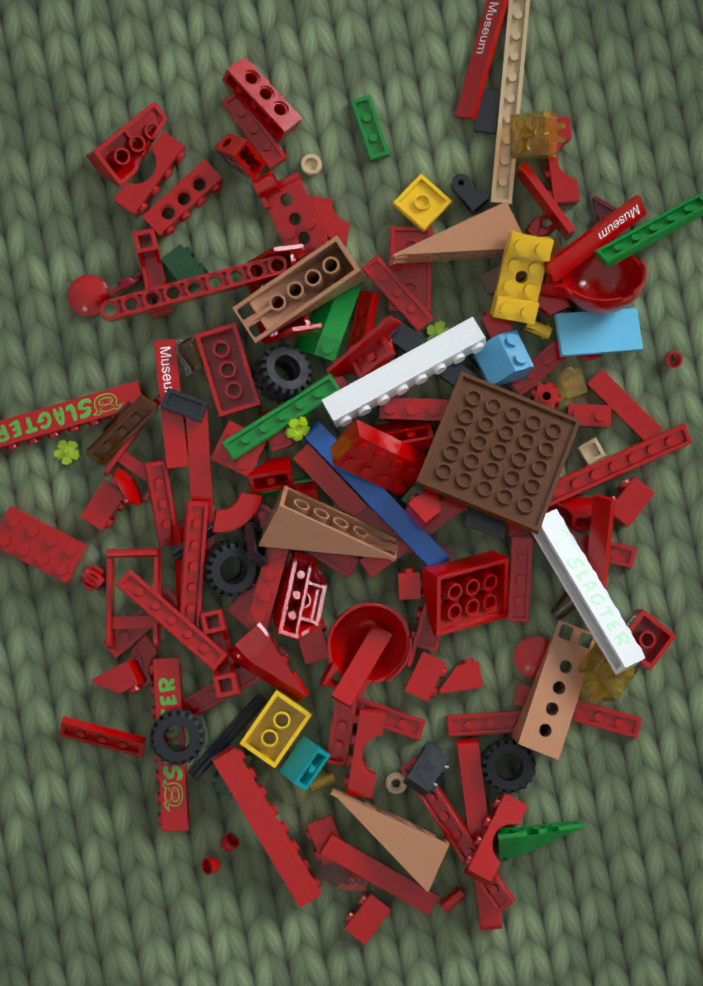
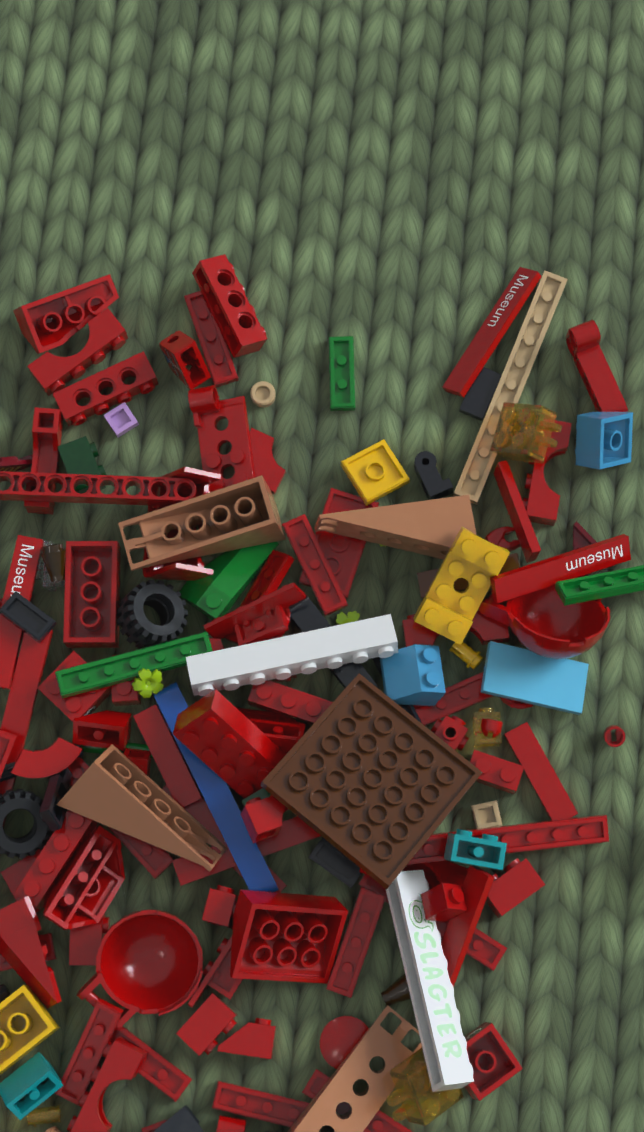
camera: 20 degrees right, 10 degrees down
(203, 220) = (121, 419): none -> lavender plate
(361, 666) = (133, 987): red tile -> none
(575, 67) = (593, 368): none -> red beam
(578, 380) = (491, 725): none -> red hinge
(581, 529) = (443, 902): none -> red brick
(594, 483) = (475, 851): none -> teal brick
(598, 122) = (603, 439): none -> dark azure slope

